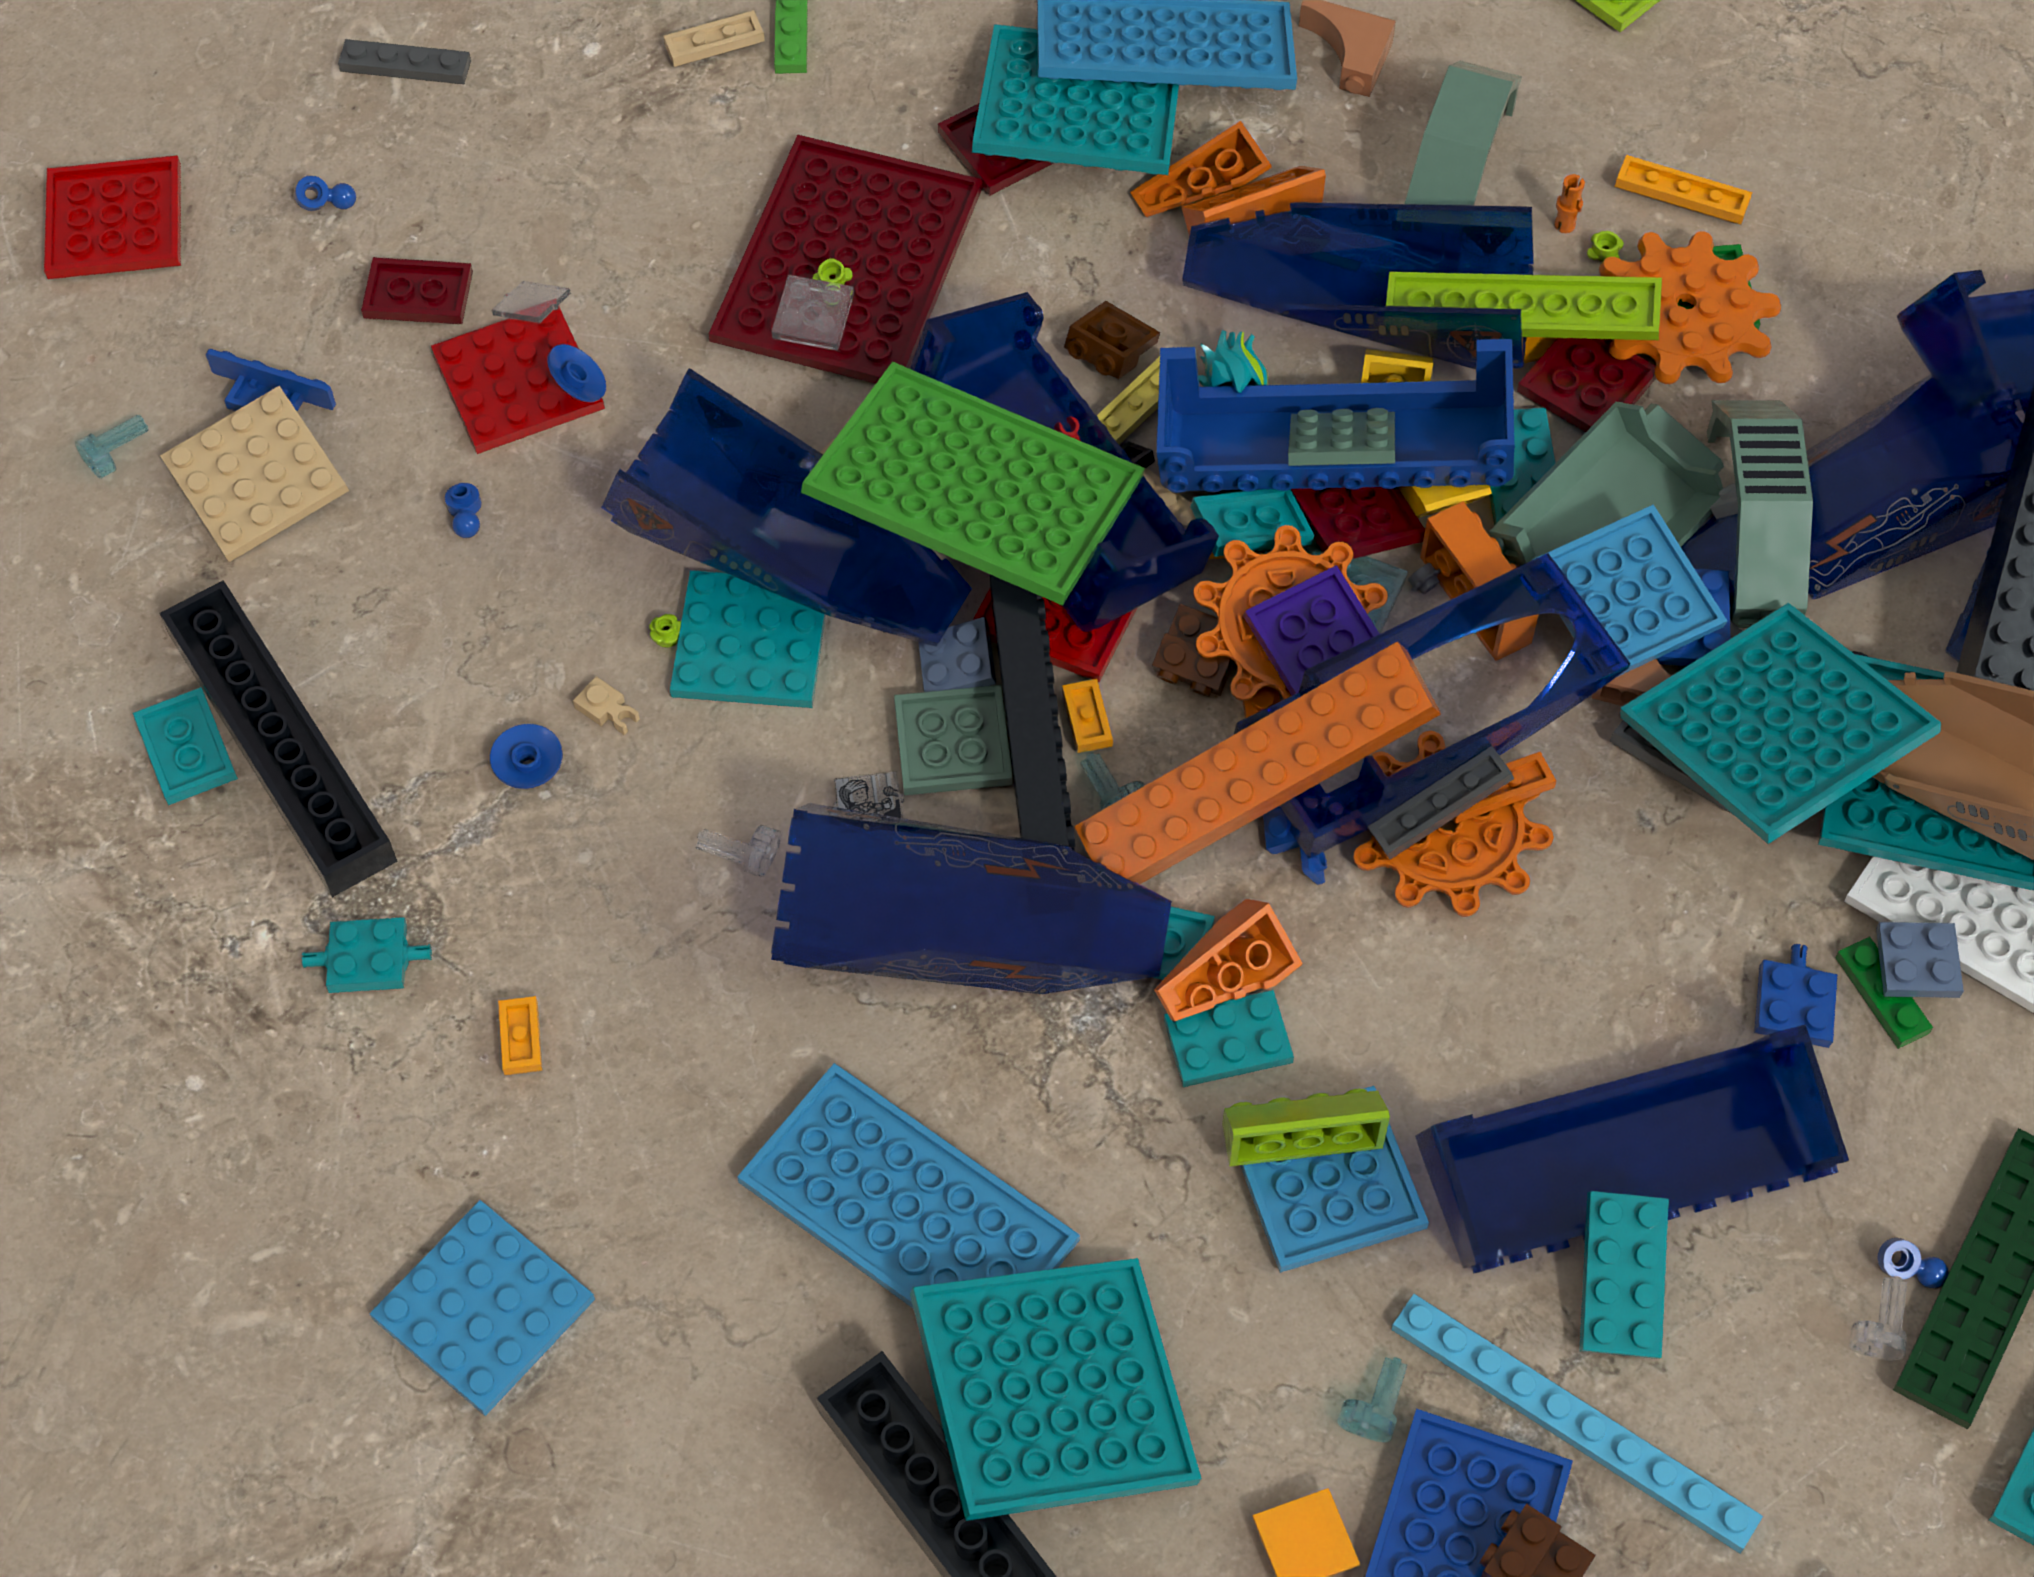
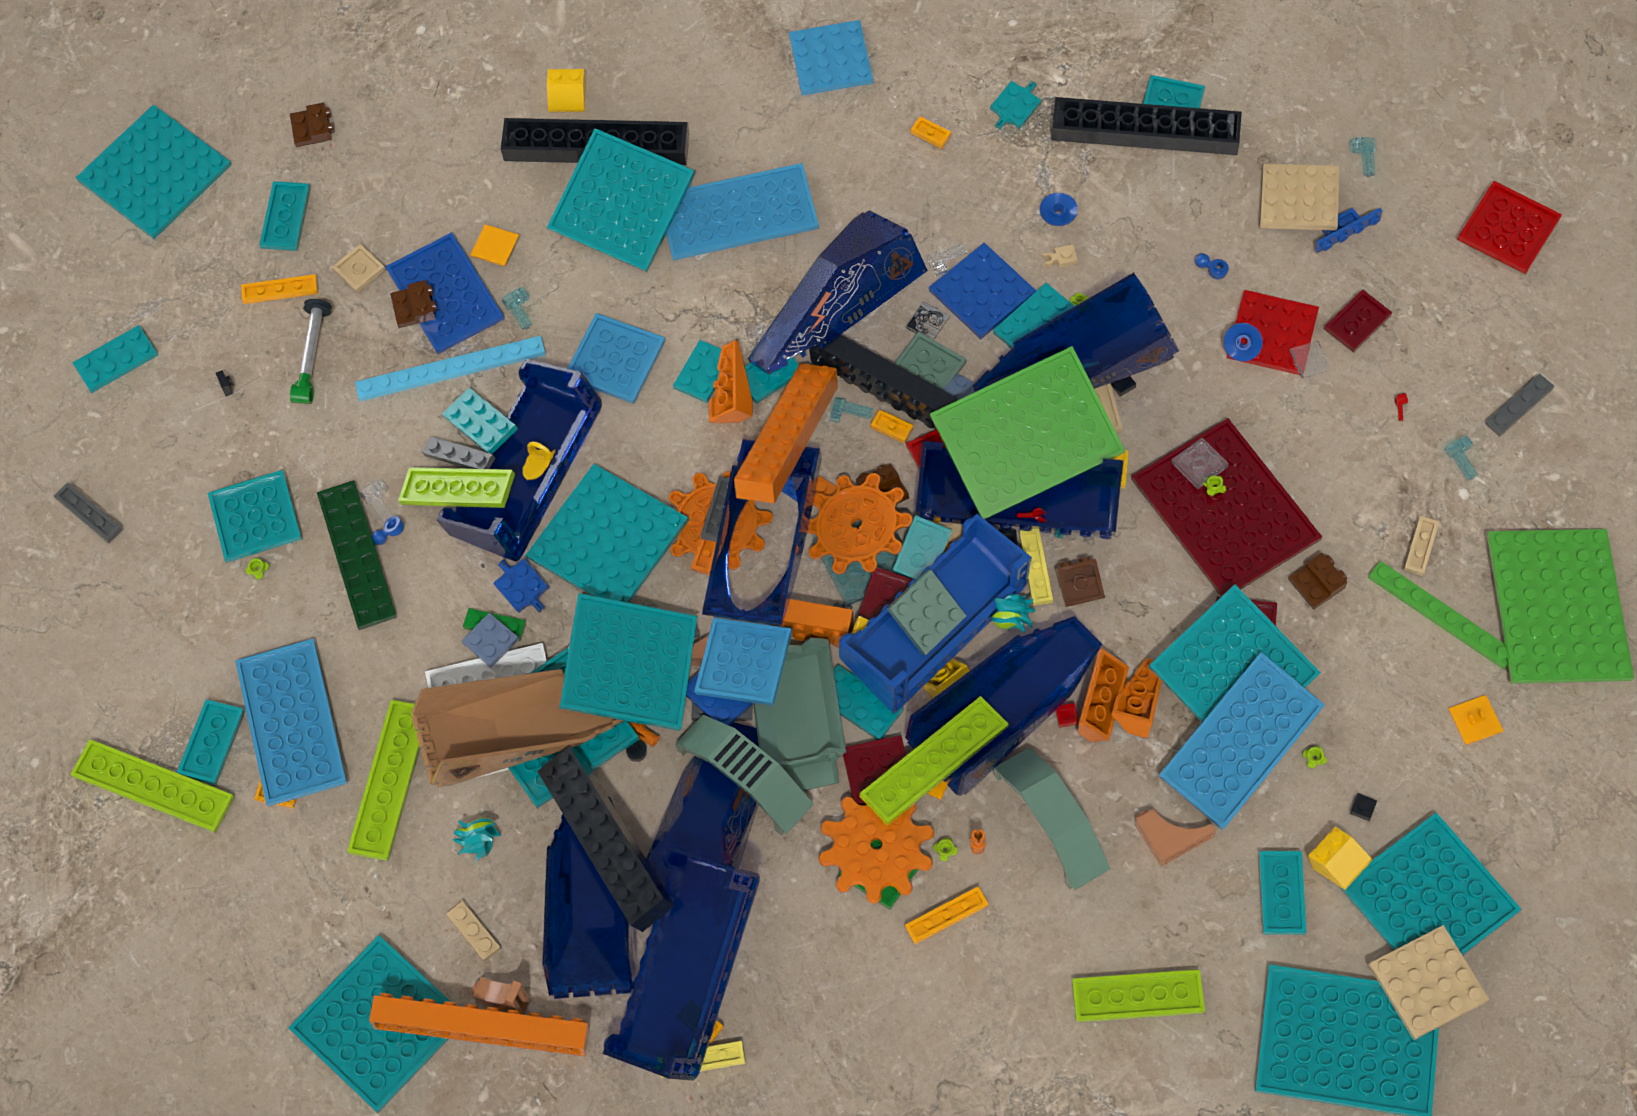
camera: 135 degrees right, 5 degrees up
(341, 195) = (1448, 327): blue plate -> none
(509, 180) = (1400, 400): none -> red hand
(538, 79) = (1456, 451): none -> clear light blue piece
(750, 763) = (982, 290): none -> blue plate
(861, 109) = (1319, 580): none -> reddish brown plate
(1305, 1127) = (635, 351): lime slope -> none
(1309, 625) = (837, 522): dark purple plate -> none
(1601, 1135) = (537, 460): none -> yellow piece
(1615, 944) = (607, 537): none -> teal plate
(1705, 1258) = (457, 454): none -> plate
(1764, 1199) = (456, 487): none -> lime plate

